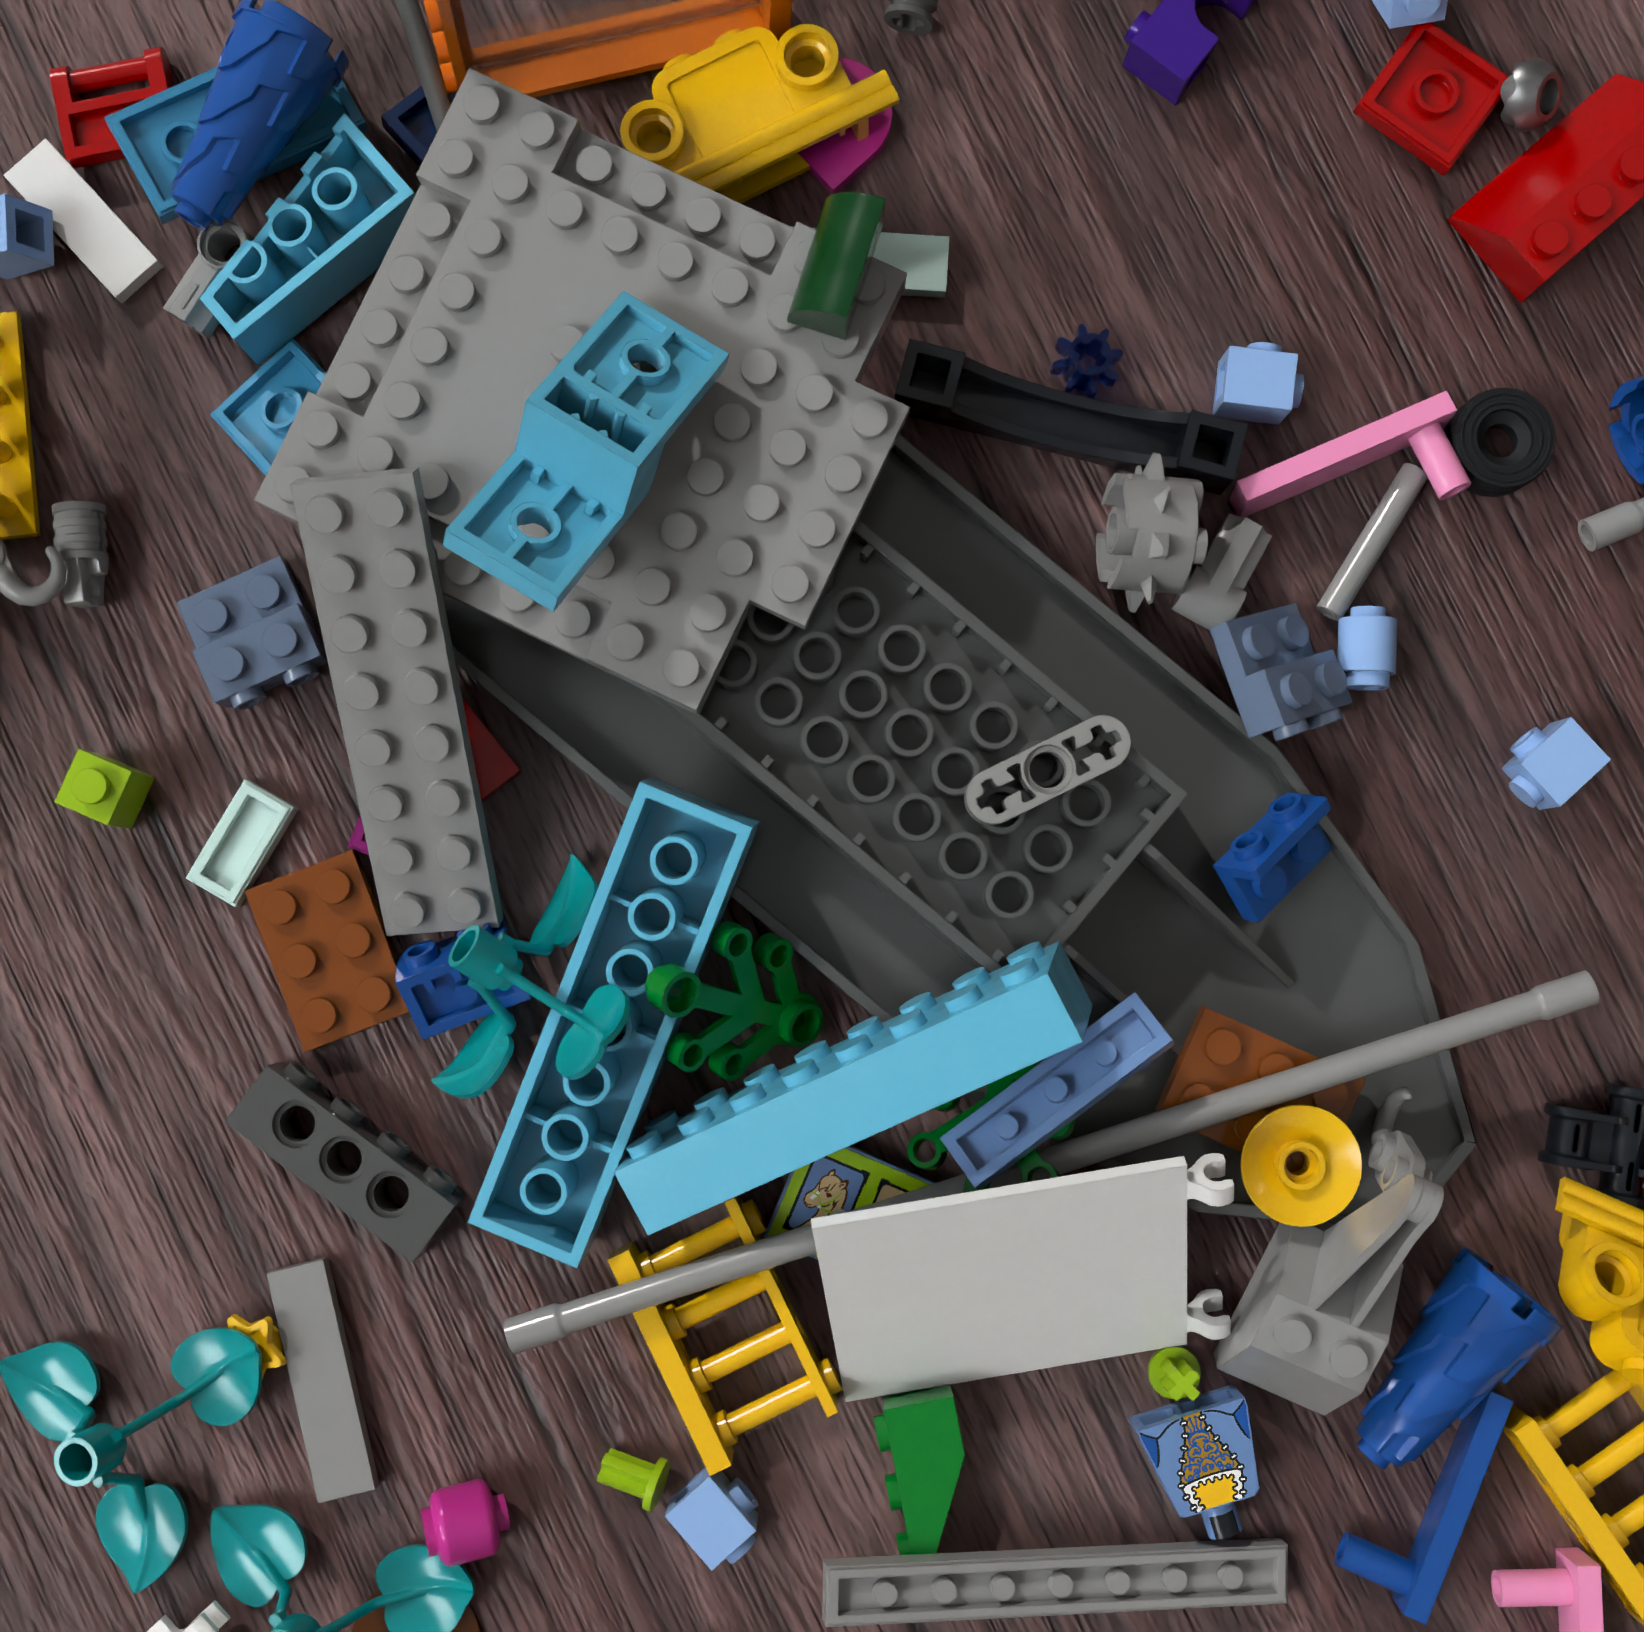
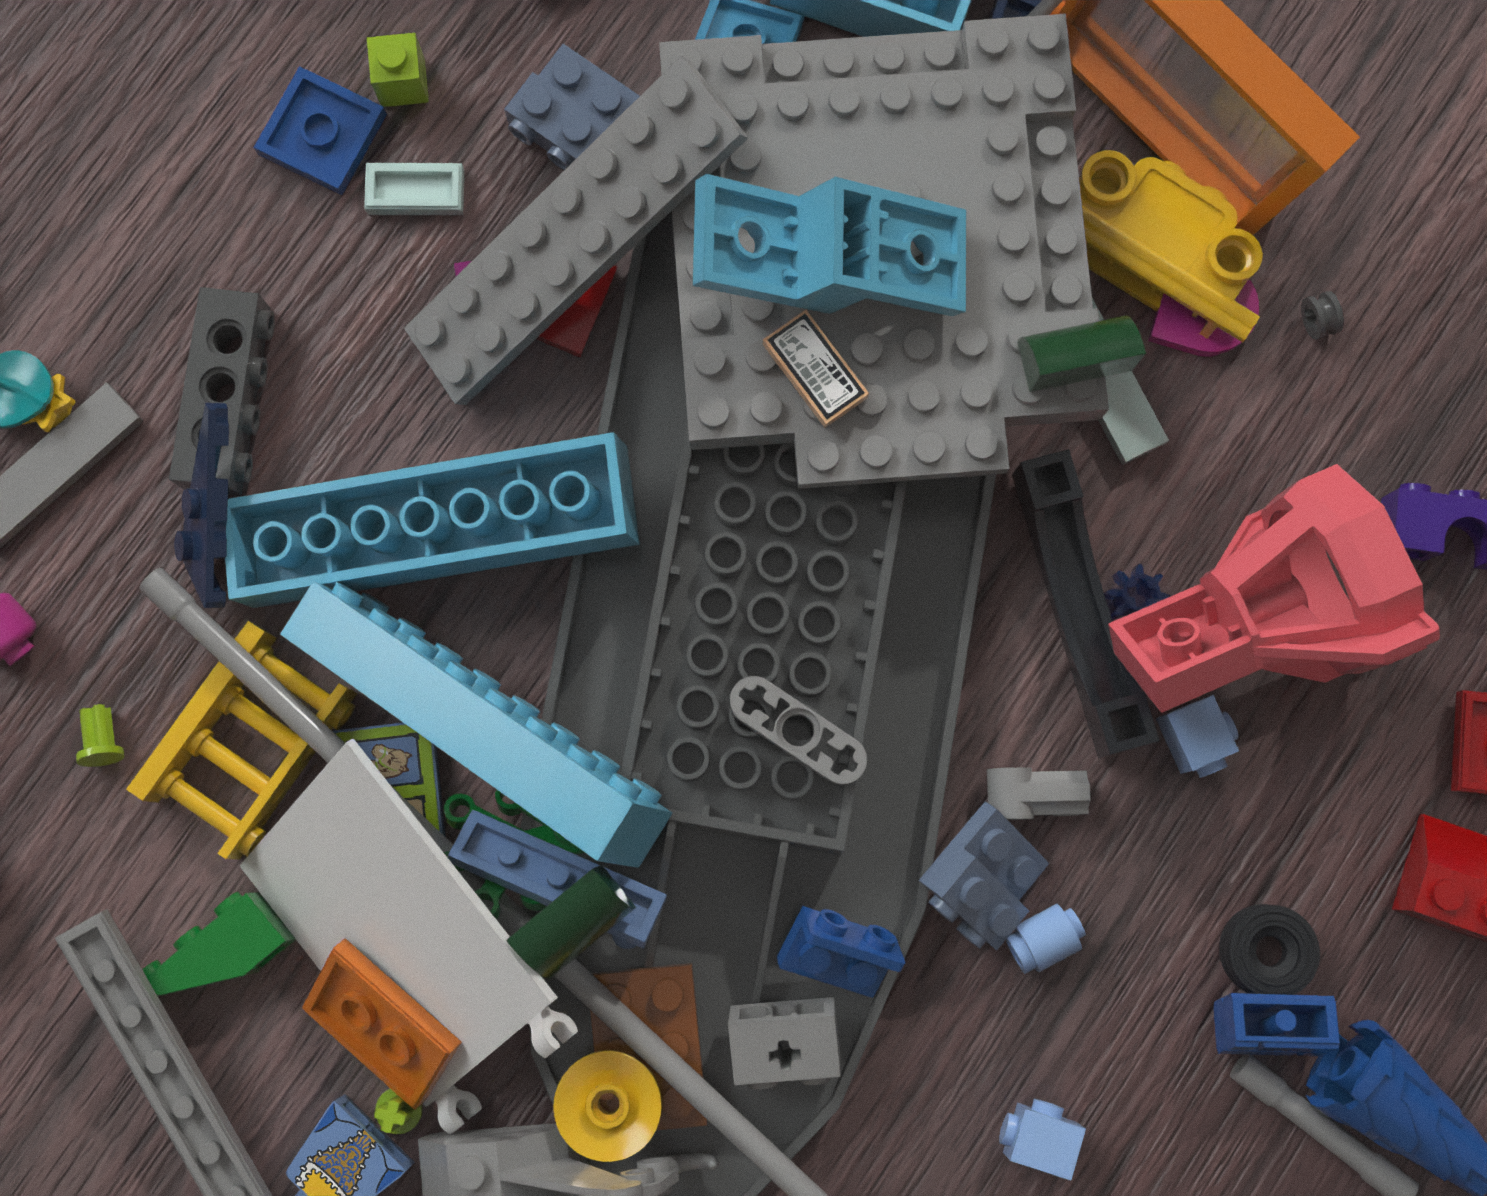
camera: 60 degrees right, 5 degrees down
(121, 906) = (320, 130): none -> blue tile
(328, 949) = (370, 295): dark orange plate -> none
(439, 993) = (401, 398): blue bracket -> none
(471, 1243) = (206, 509): none -> dark blue wing
(494, 964) = (420, 408): teal plant -> none
(699, 539) = (815, 368): none -> tile
(715, 1517) = (98, 814): light blue brick -> none
(789, 1021) = (505, 657): green plant -> none
(1088, 1345) = (380, 1024): none -> orange tile
(1116, 1101) = (571, 923): none -> dark green brick
(1150, 533) = (1030, 714): light grey brick -> none
(1185, 226) = (1279, 600): none -> coral plate
(1322, 930) = (811, 1034): none -> light grey brick
(1372, 541) = (1133, 897): light grey piece -> none
(1414, 426) = (1241, 877): bright pink piece -> none
(1574, 477) = (1276, 1024): none -> blue brick

